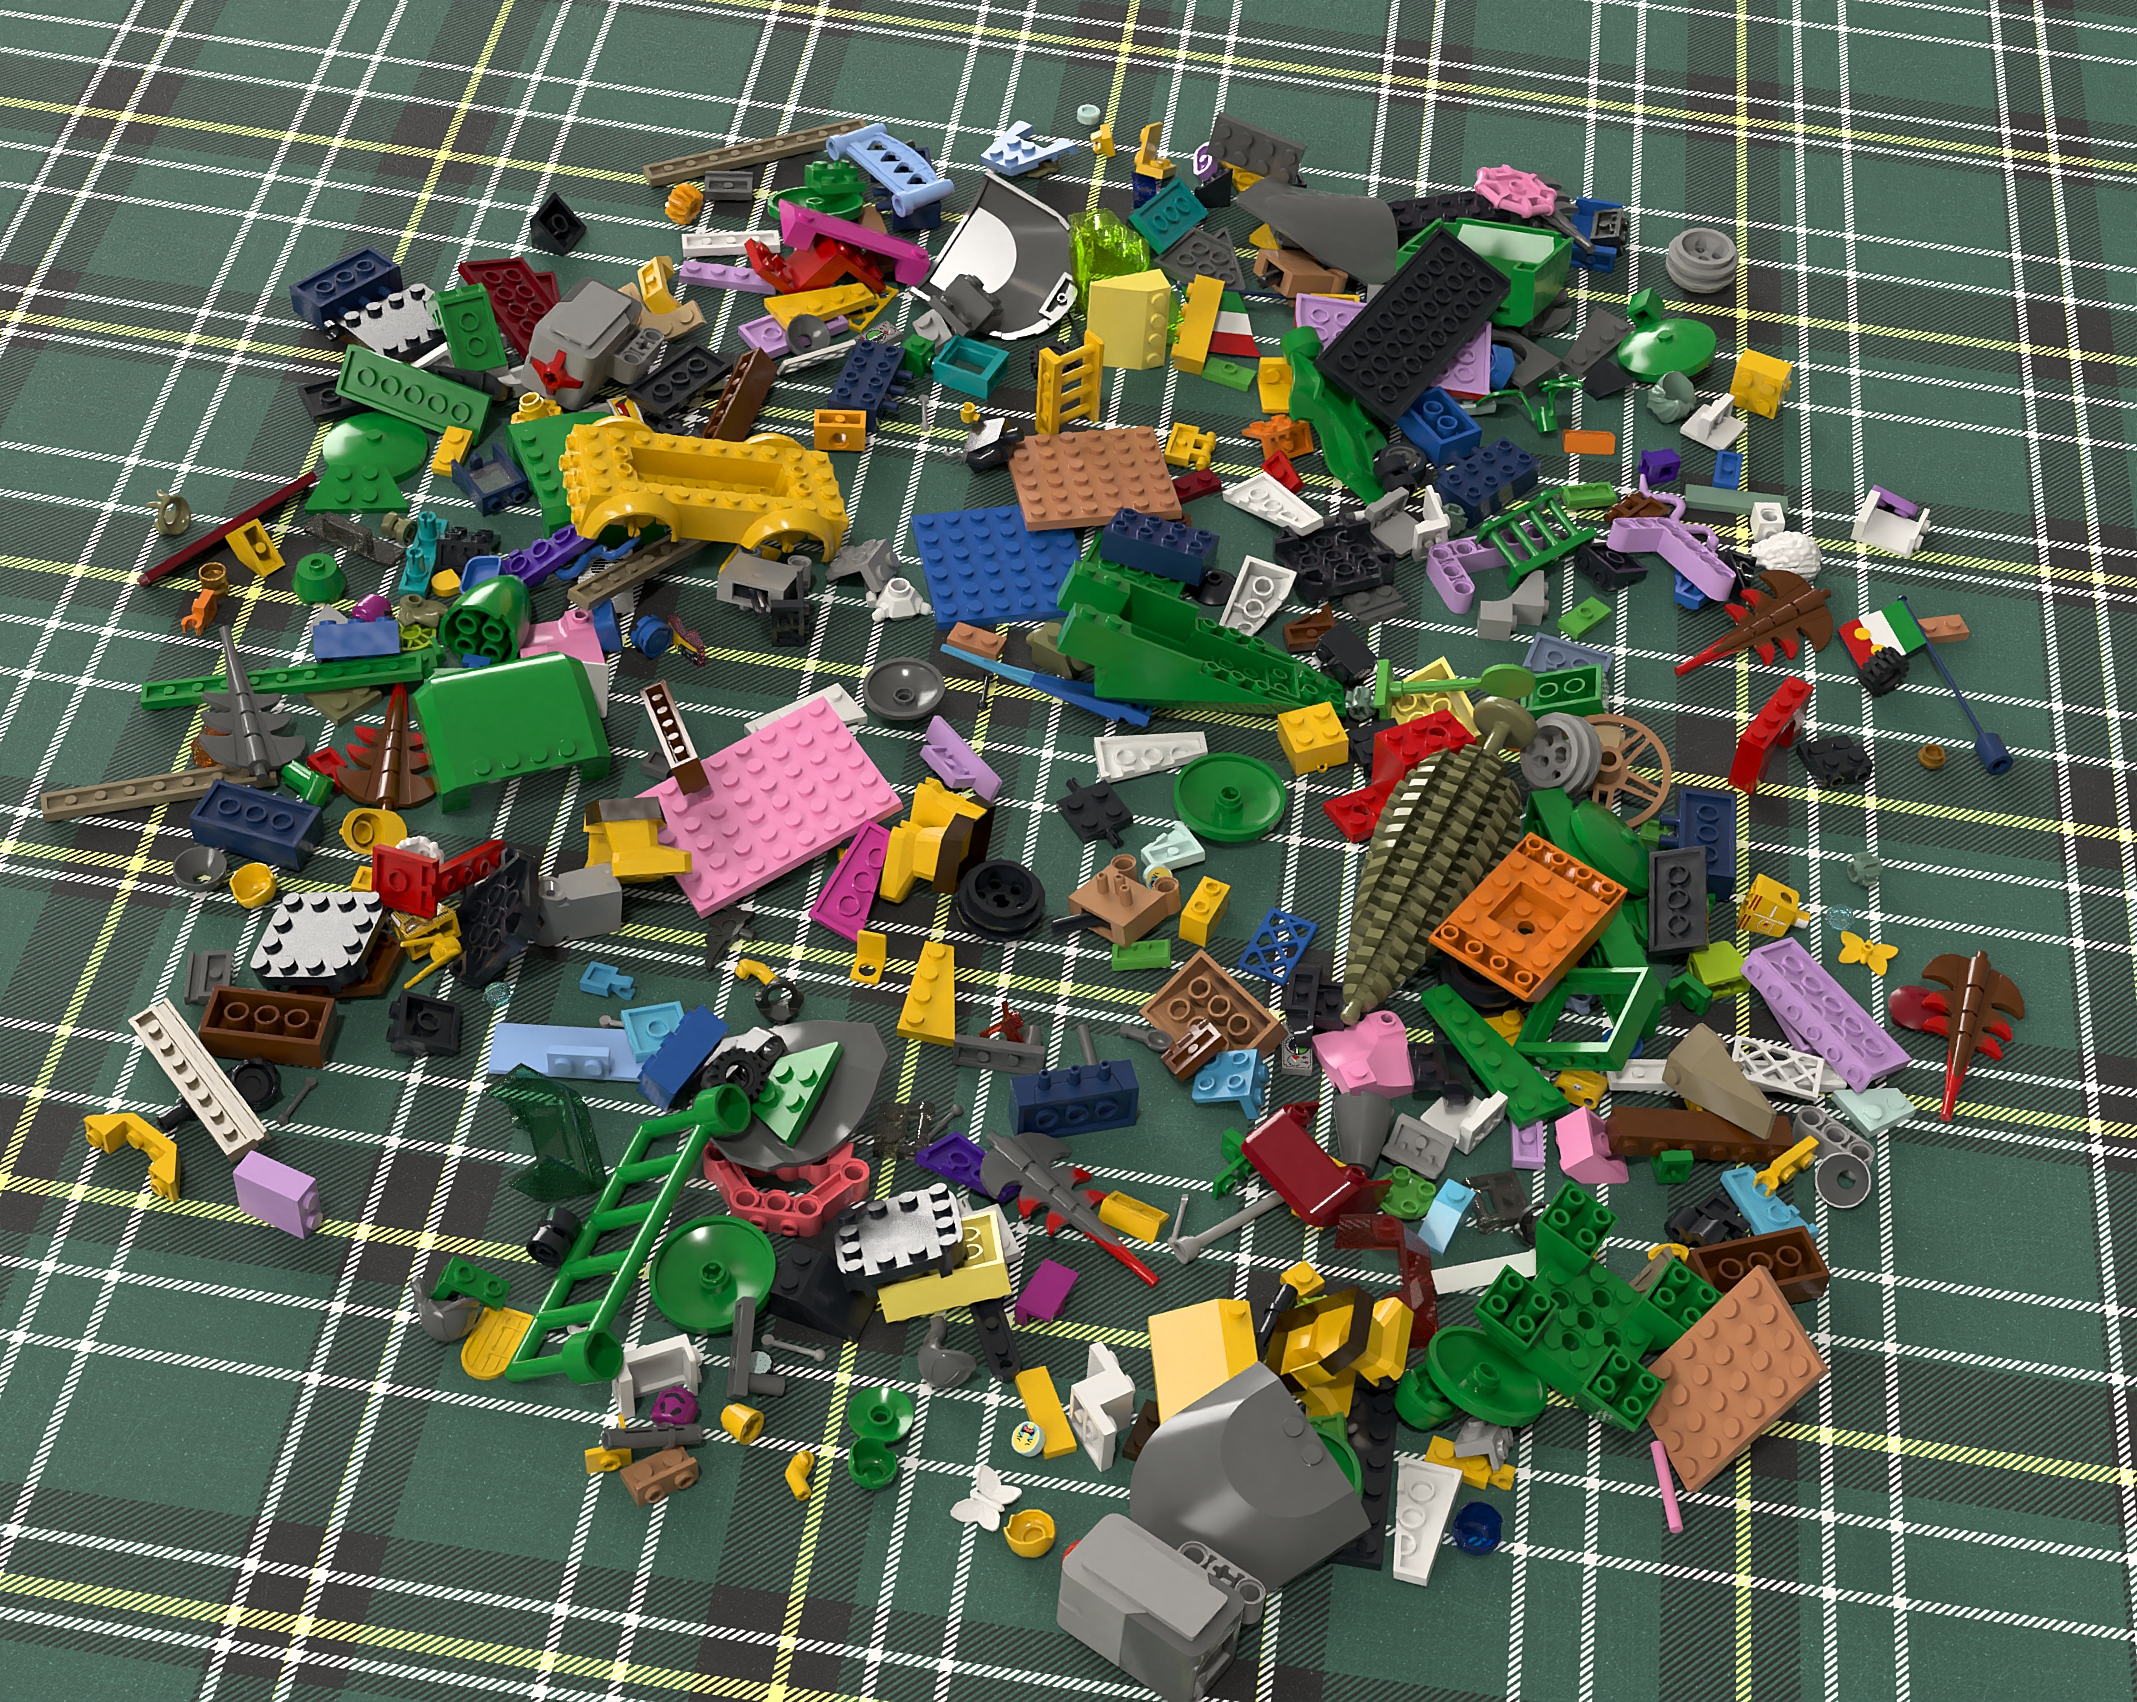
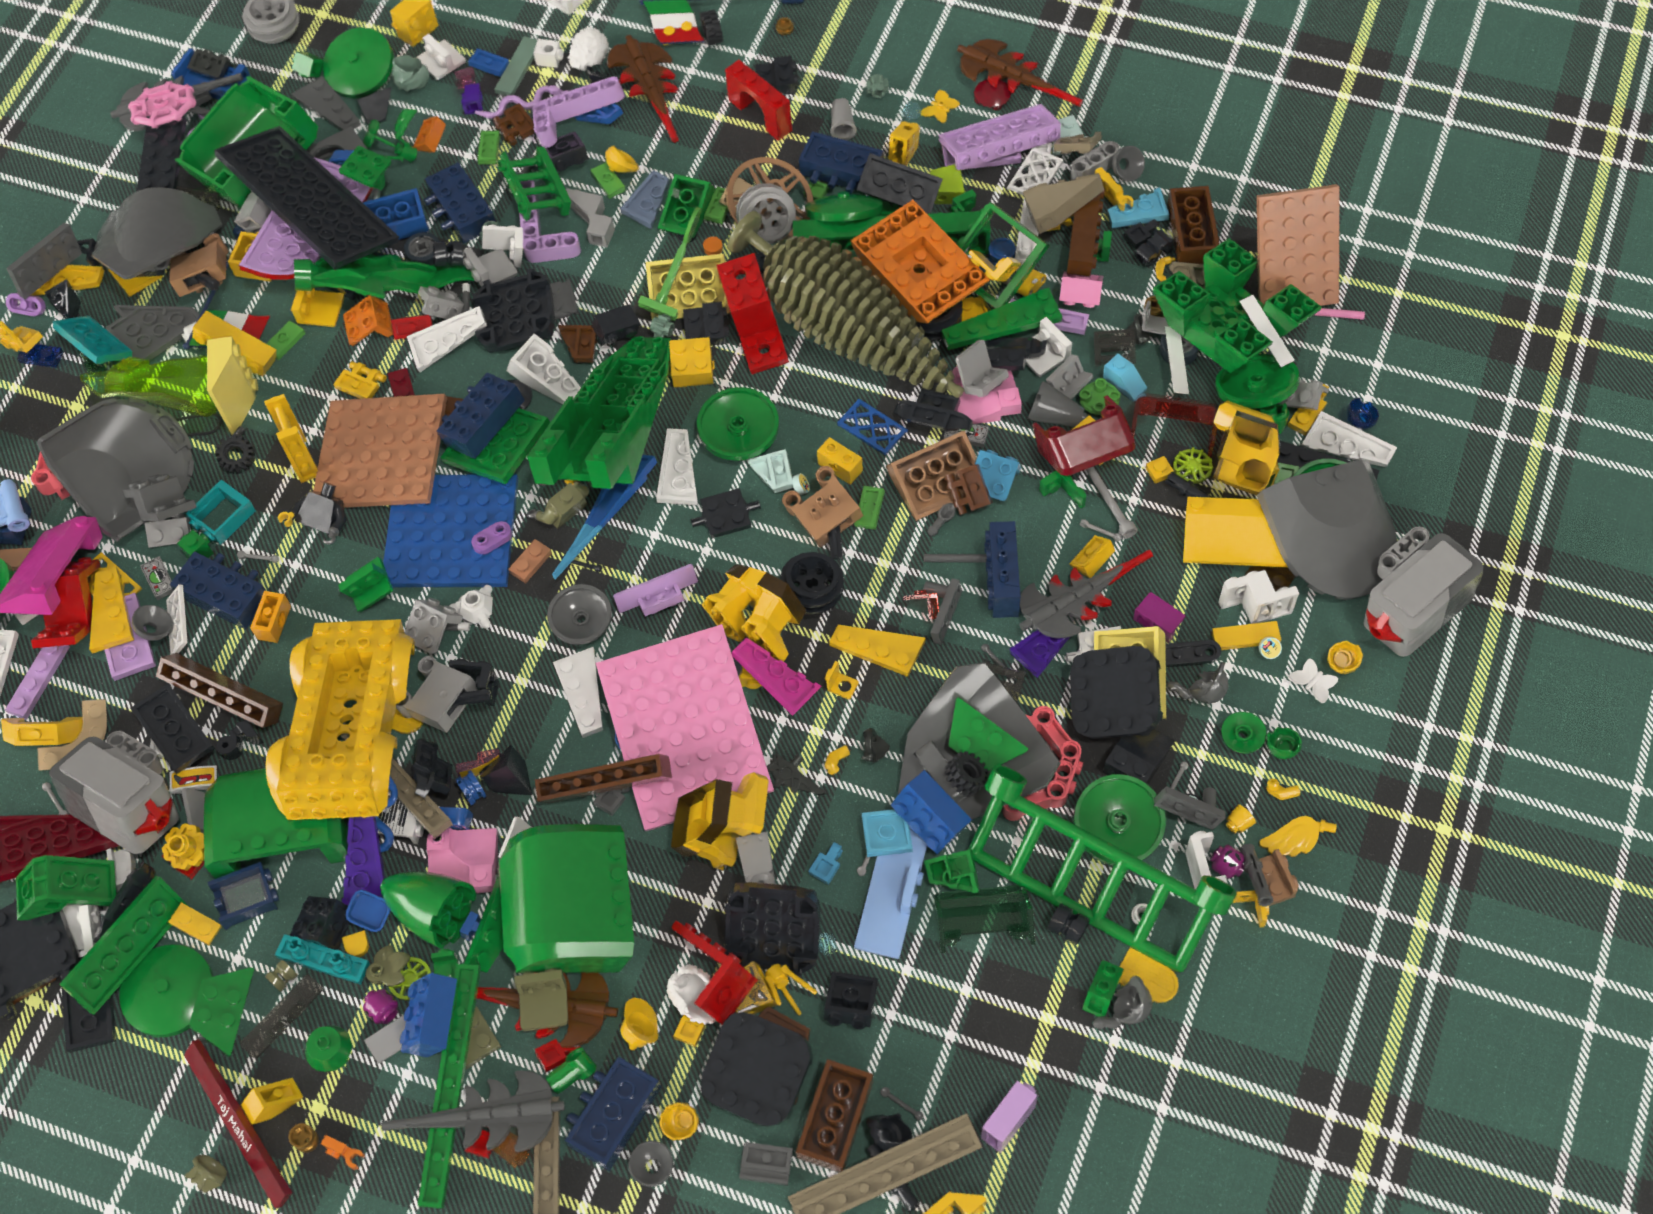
camera: 70 degrees left, 15 degrees up
(387, 737) = (542, 999): none -> olive bracket
(613, 1108) = (954, 871): none -> green slope
(662, 585) = (430, 770): none -> black plate
(682, 667) = (508, 774): none -> black slope
(730, 1500) = (1297, 836): none -> yellow animal
(902, 498) = (367, 584): none -> green bracket
(993, 594) = (492, 538): none -> medium lavender plate
(1321, 486) = (440, 303): none -> light grey bracket
(1387, 1026) = (976, 370): none -> light grey bracket
(1484, 371) = (366, 167): none -> green bracket
(1552, 1000) = (1001, 271): none -> yellow bracket
(1571, 1366) = (1263, 325): none -> white sticker
(1614, 618) = (620, 161): none -> yellow hat
(1683, 447) = (465, 77): none -> clear pink plate
(1785, 837) = (842, 120): none -> light grey plant
(1852, 1110) = (1077, 143): none -> dark tan wing

